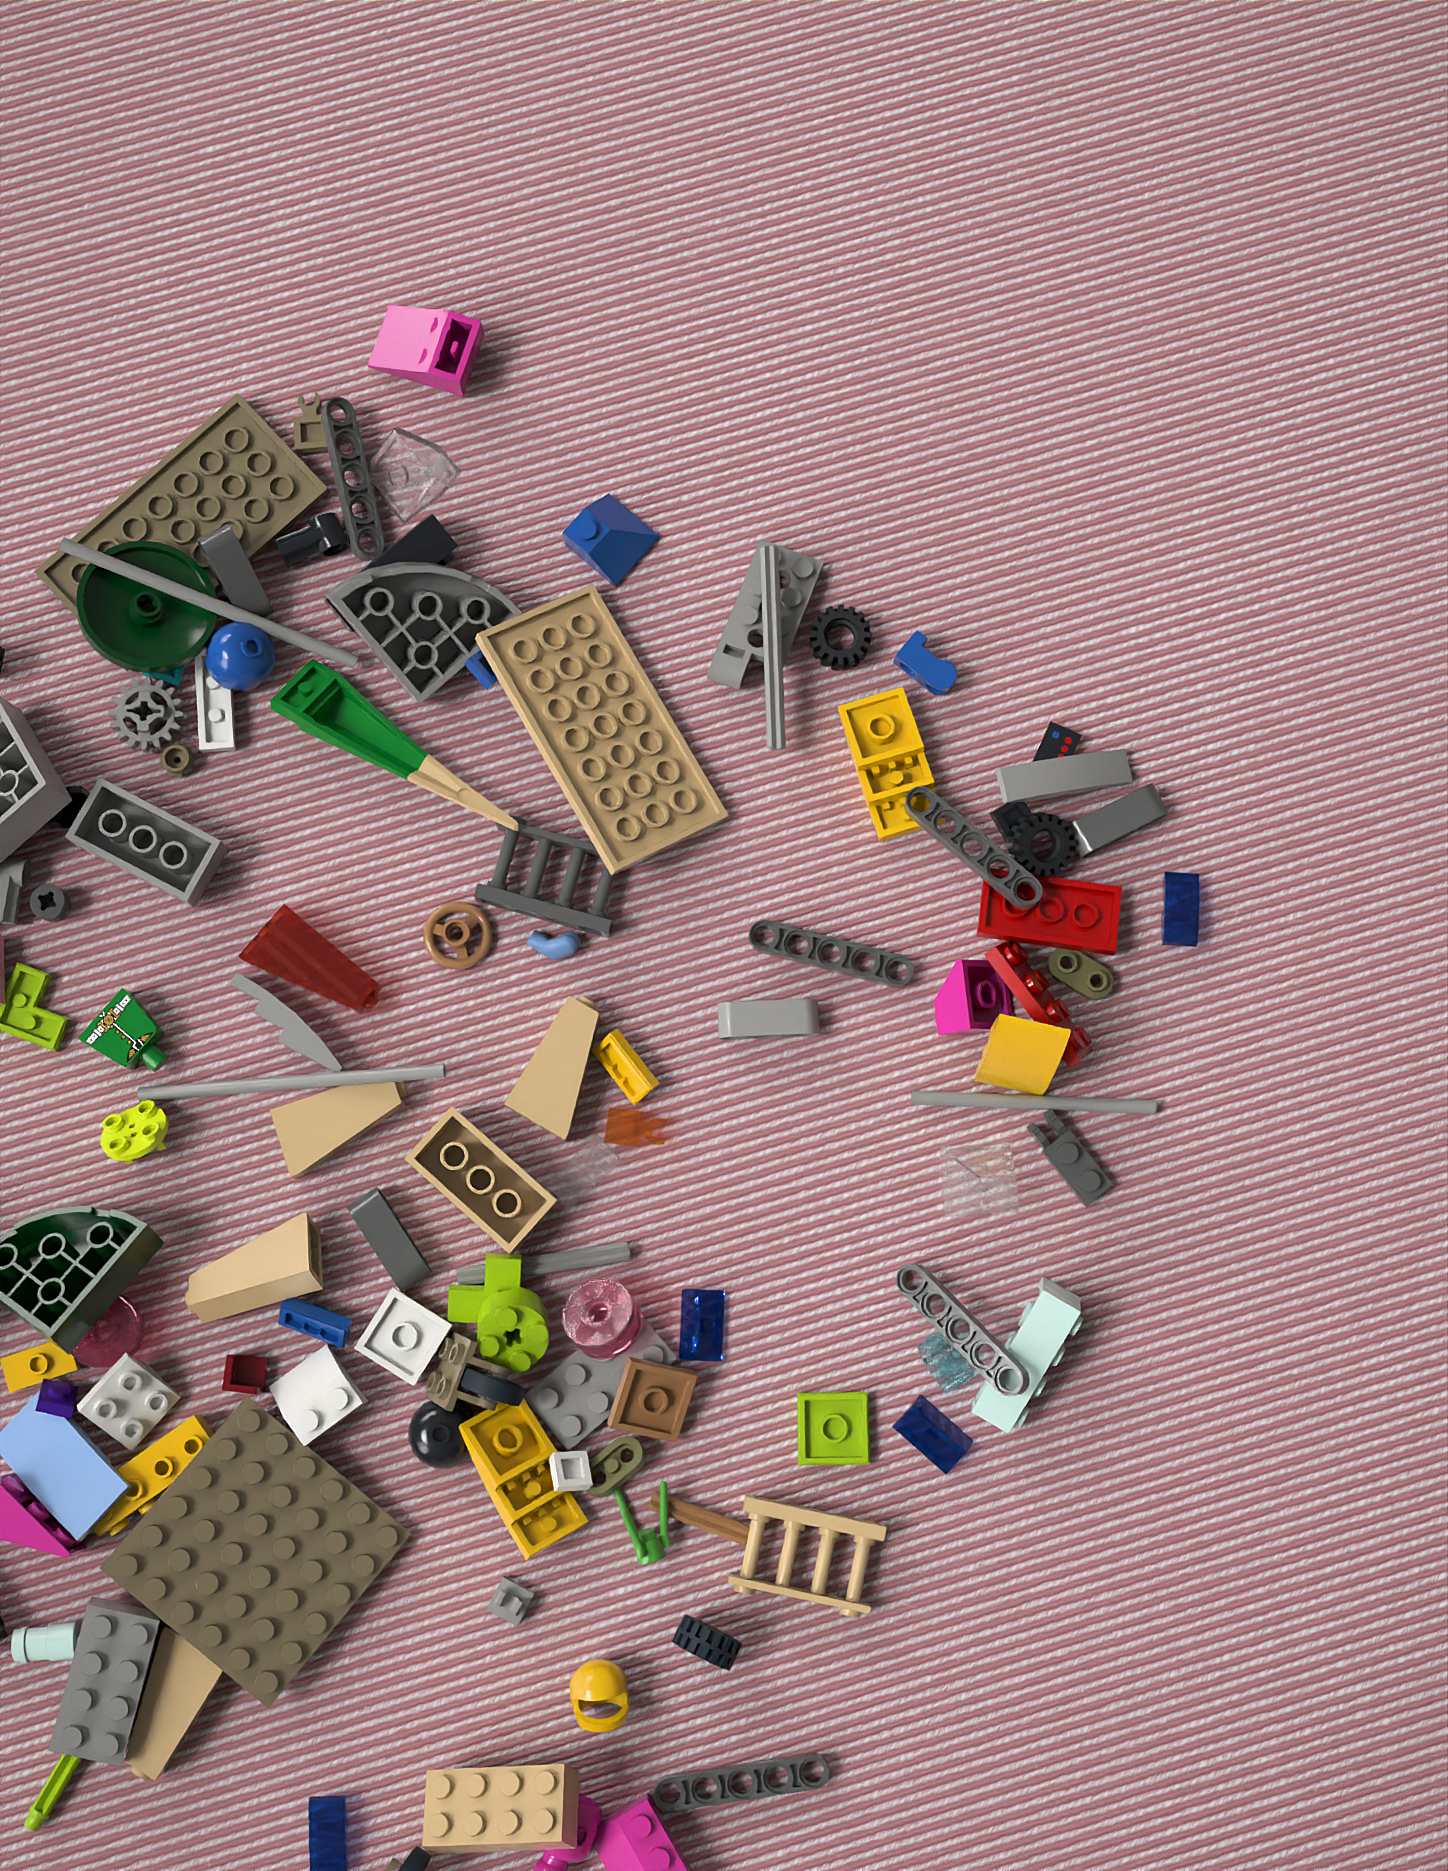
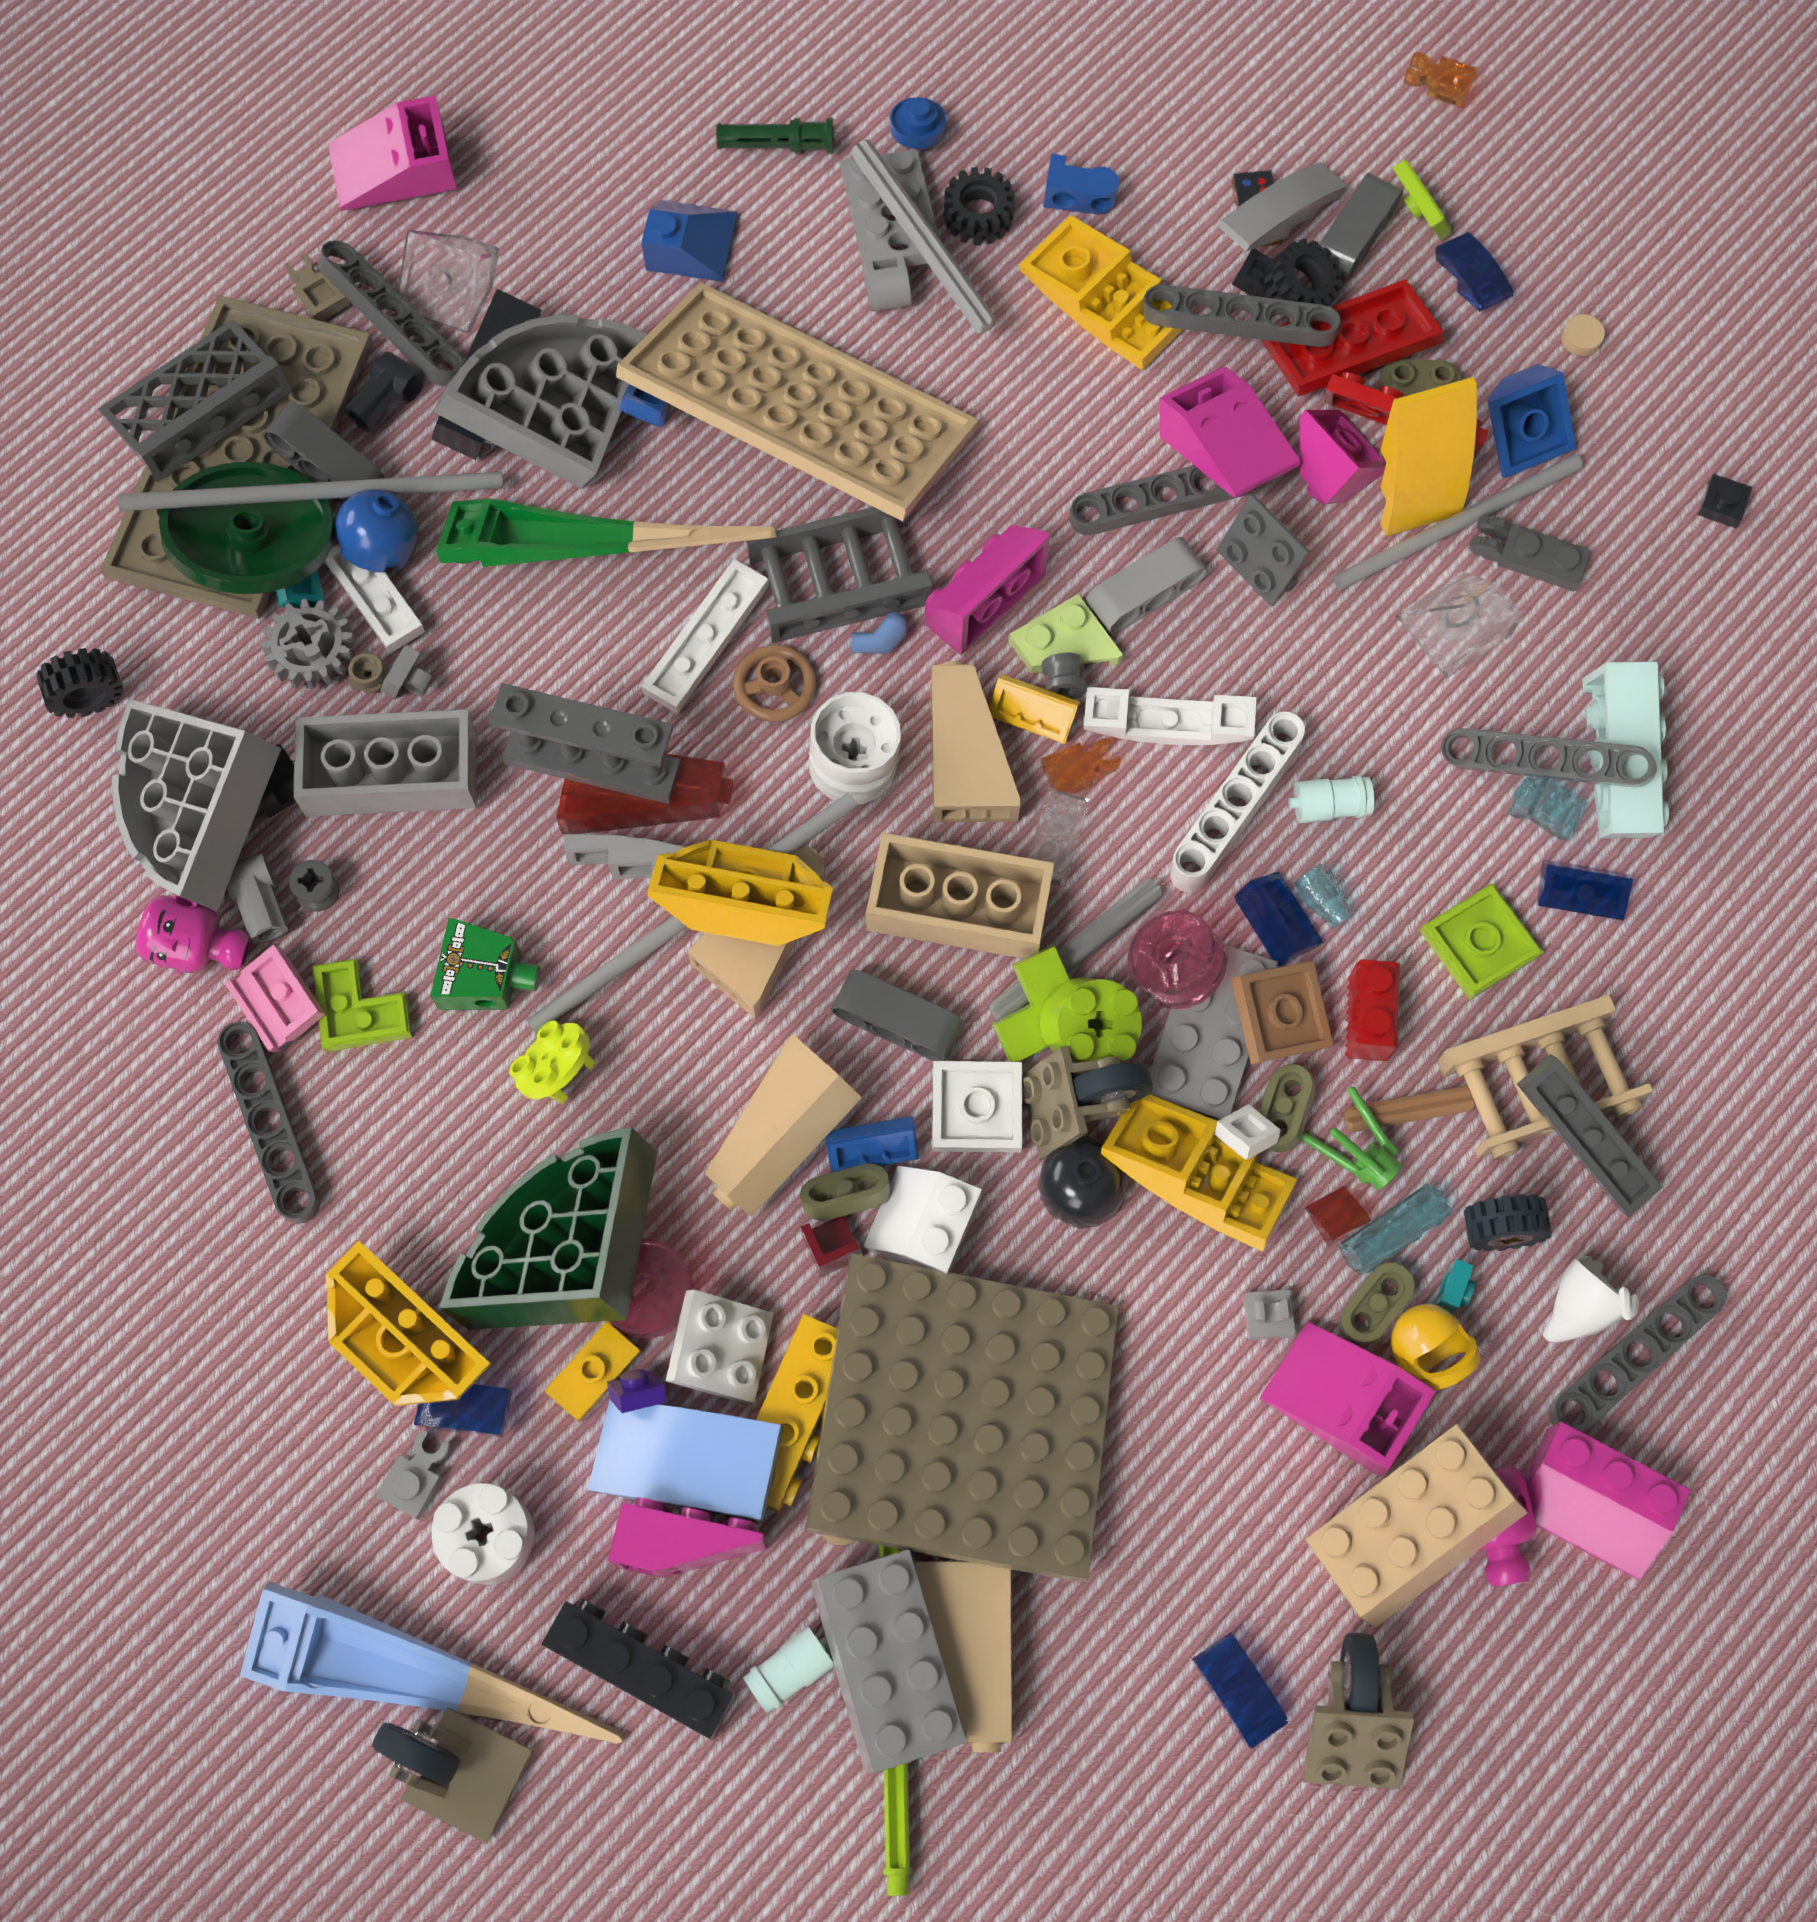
camera: 30 degrees left, 10 degrees down
(170, 499) = (210, 416): none -> dark grey fence
(199, 777) = (406, 675): none -> light grey tile
(278, 924) = (586, 743): none -> dark grey fence
(279, 1342) = (845, 1192): none -> olive plate
(324, 1094) = (741, 892): none -> yellow wedge
(429, 871) = (705, 636): none -> white plate
(475, 1006) = (854, 727): none -> white wheel
(521, 1691) = (1348, 1397): none -> dark pink slope
(586, 1639) = (1375, 1305): none -> olive plate
(601, 1561) = (1337, 1215): none -> clear red slope
(632, 1596) = (1395, 1229): none -> clear light blue piece
(645, 1662) = (1456, 1287): none -> teal plate
(649, 953) = (987, 586): none -> dark pink slope
(662, 1055) = (1064, 674): none -> dark grey wheel
(685, 1024) = (1064, 629): none -> yellowish green wing
(718, 1130) = (1170, 720): none -> white slope
(718, 1435) = (1373, 1010): none -> red brick
(728, 1728) = (1587, 1303): none -> white hat
(738, 497) = (796, 135): none -> dark green pin
(738, 1210) = (1241, 783): none -> white beam
(741, 1329) = (1323, 895): none -> clear light blue cone
(791, 1261) = (1331, 799): none -> light aqua piece
(801, 1618) = (1589, 1135): none -> dark grey plate
(837, 540) = (917, 123): none -> blue plate
(863, 1046) = (1263, 550): none -> dark grey hinge
(897, 940) = (1225, 432): none -> dark pink slope
(1136, 1054) = (1530, 418): none -> blue slope
(1178, 828) = (1420, 200): none -> lime plate
(1229, 1008) = (1583, 335): none -> tan tile
(1243, 1203) = (1724, 501): none -> black plate
(1269, 736) = (1447, 81): none -> clear orange plate

